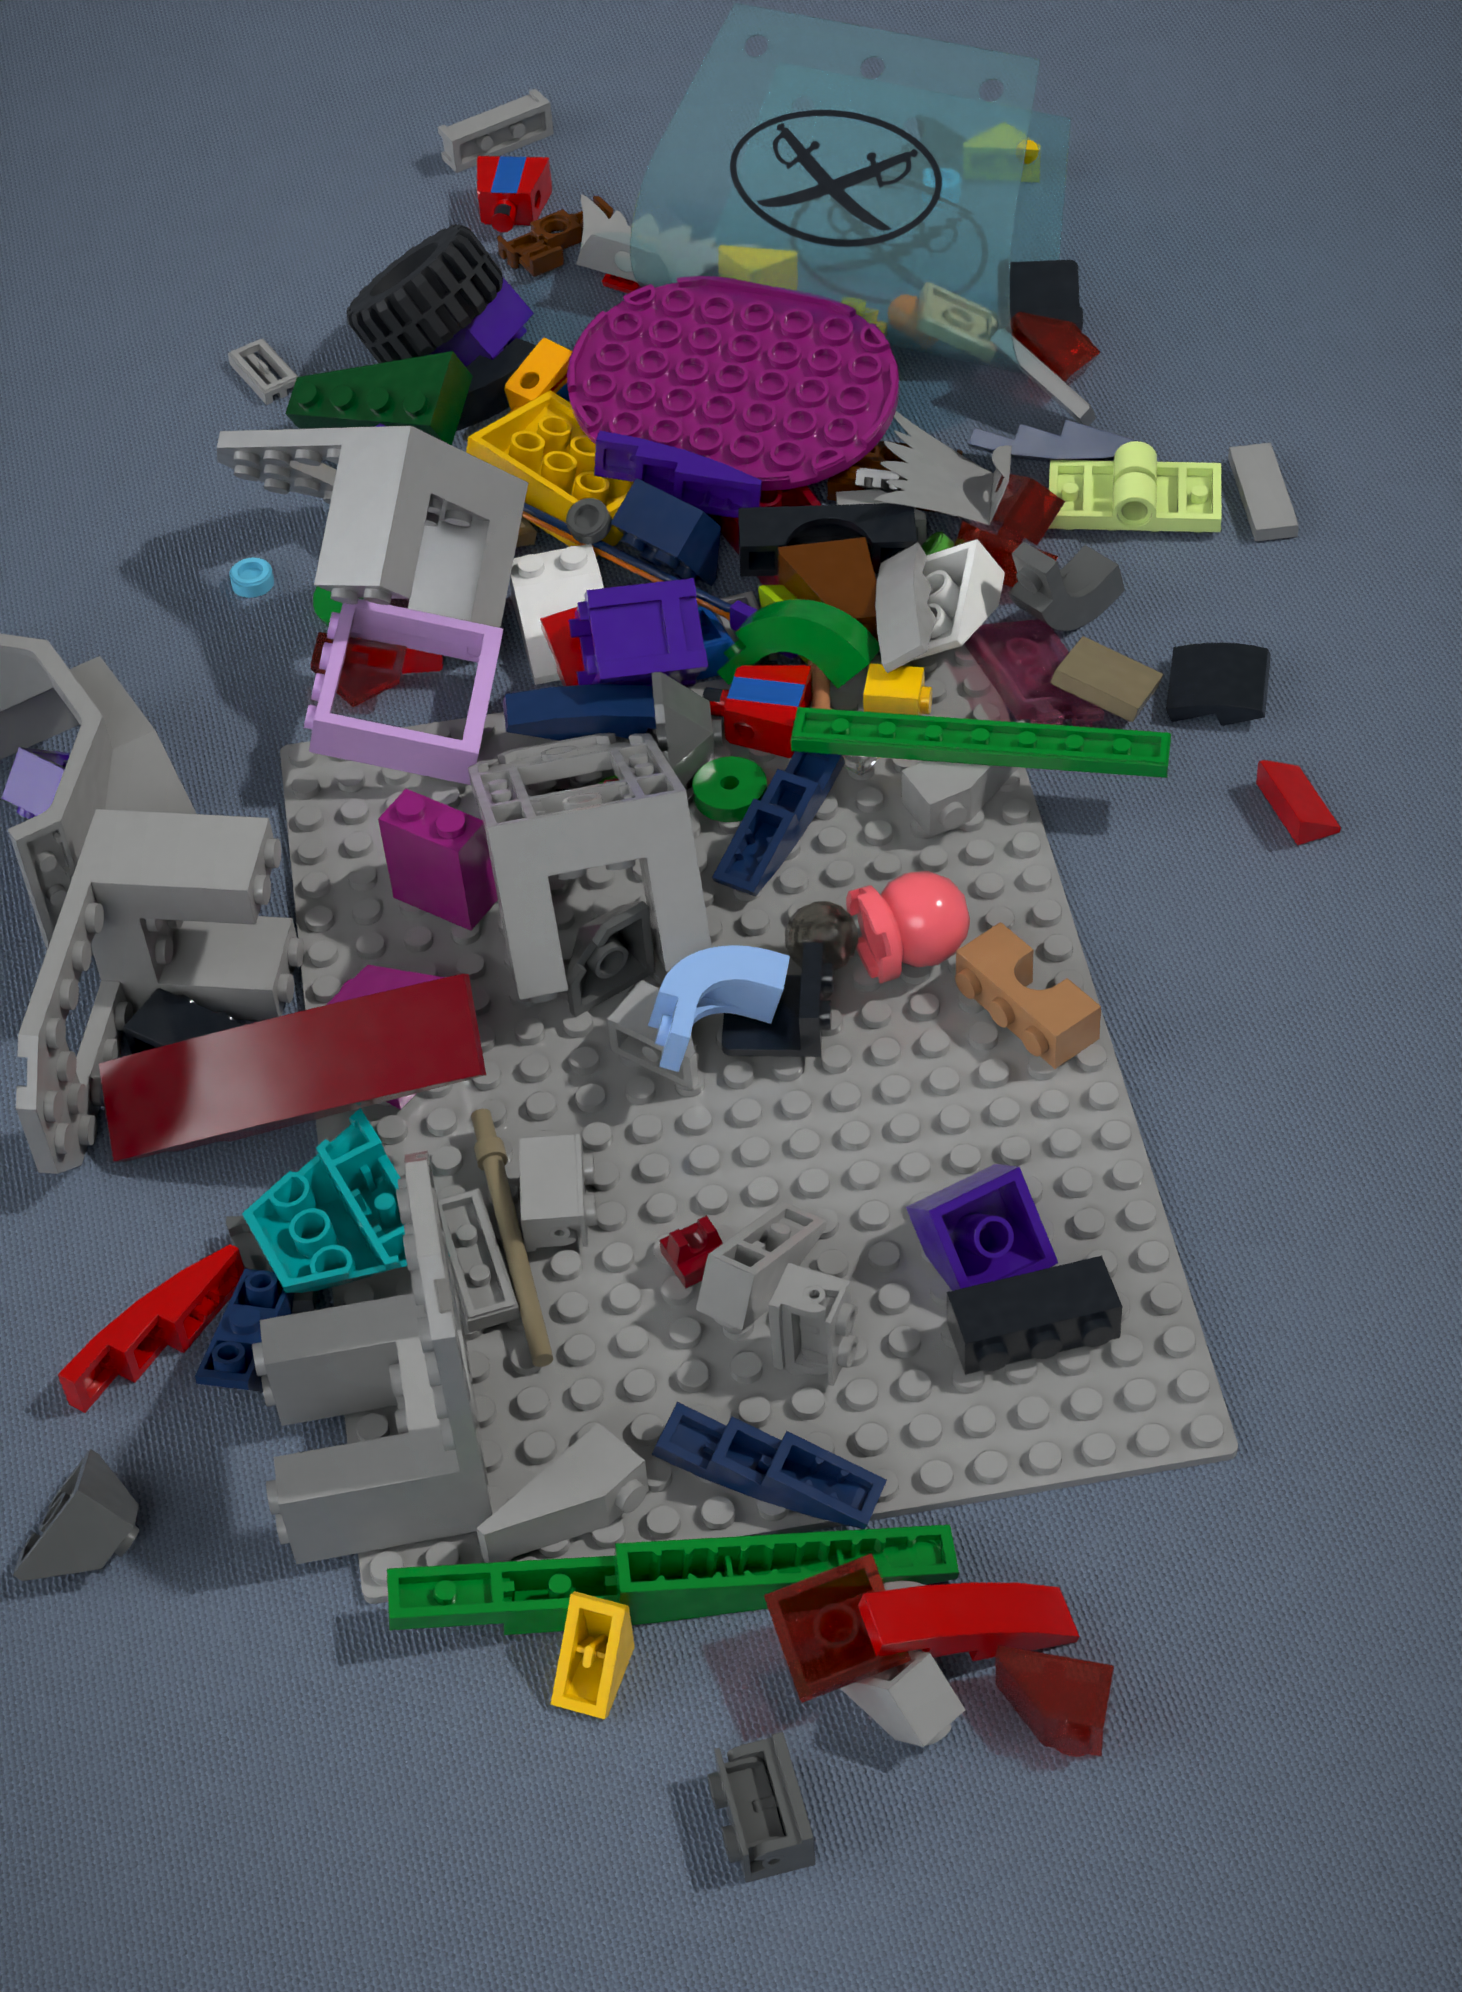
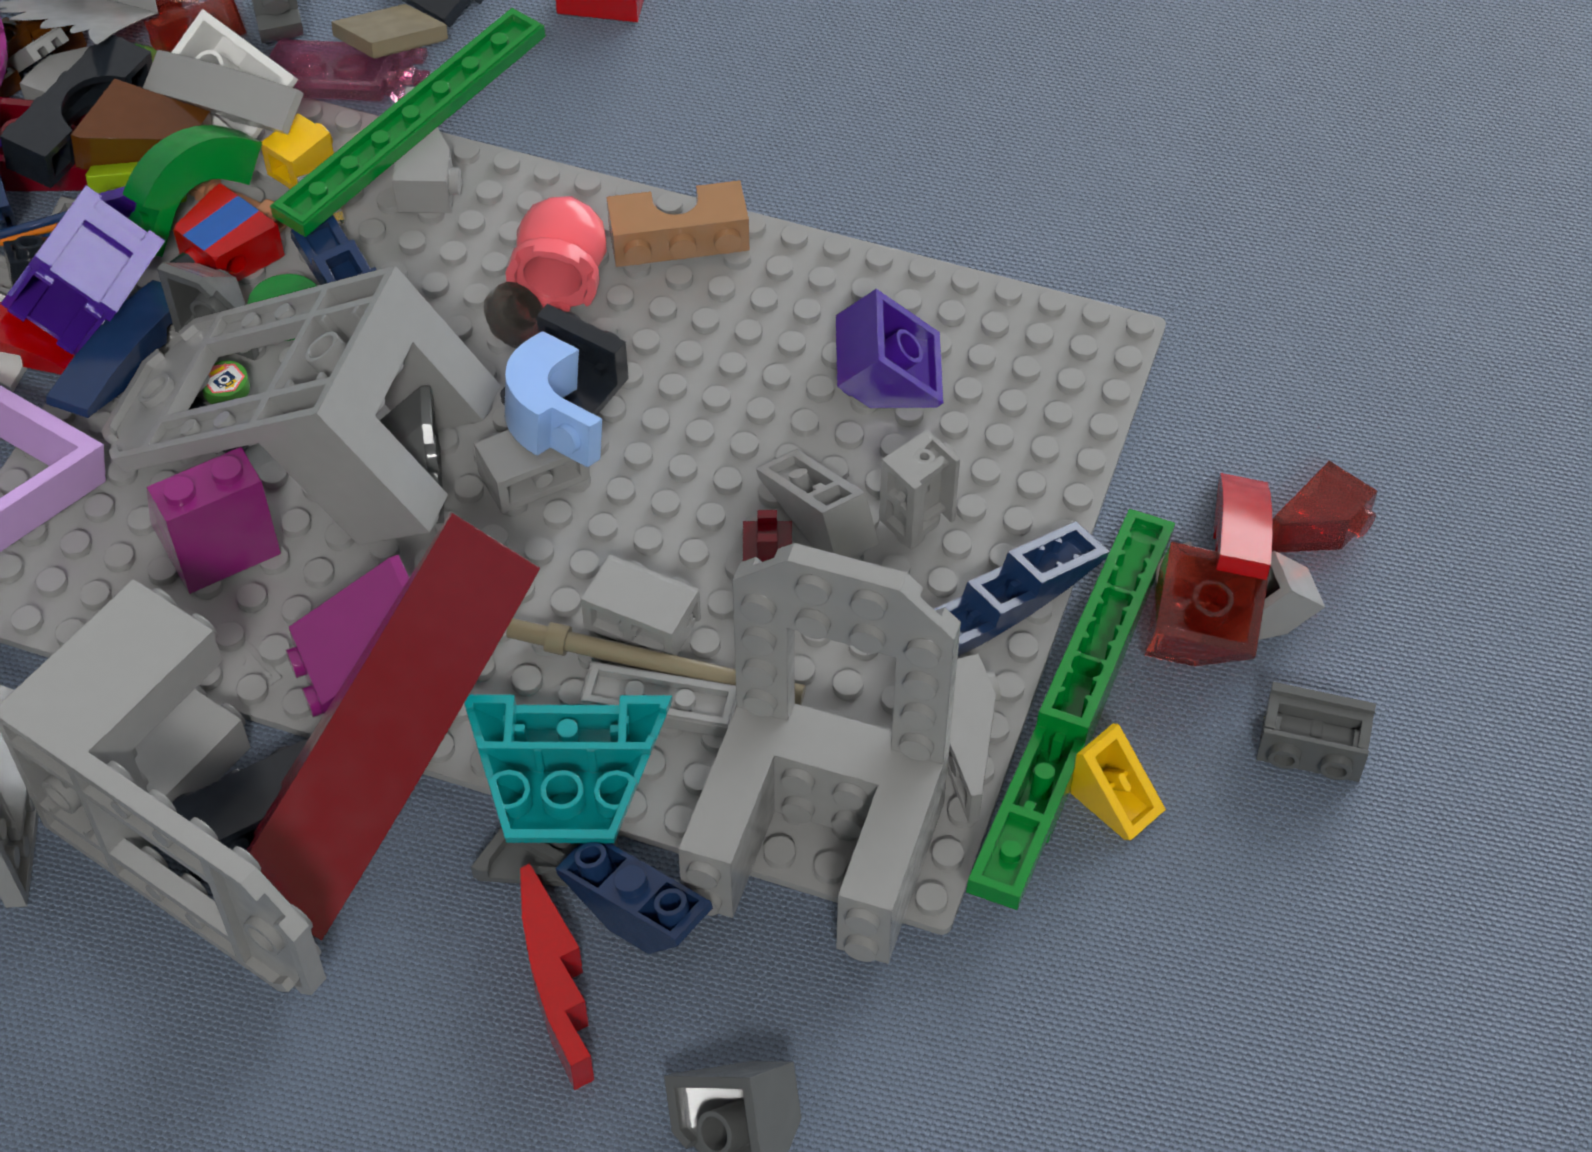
camera: 65 degrees left, 5 degrees up
(1034, 1315) = (990, 364): black brick -> none

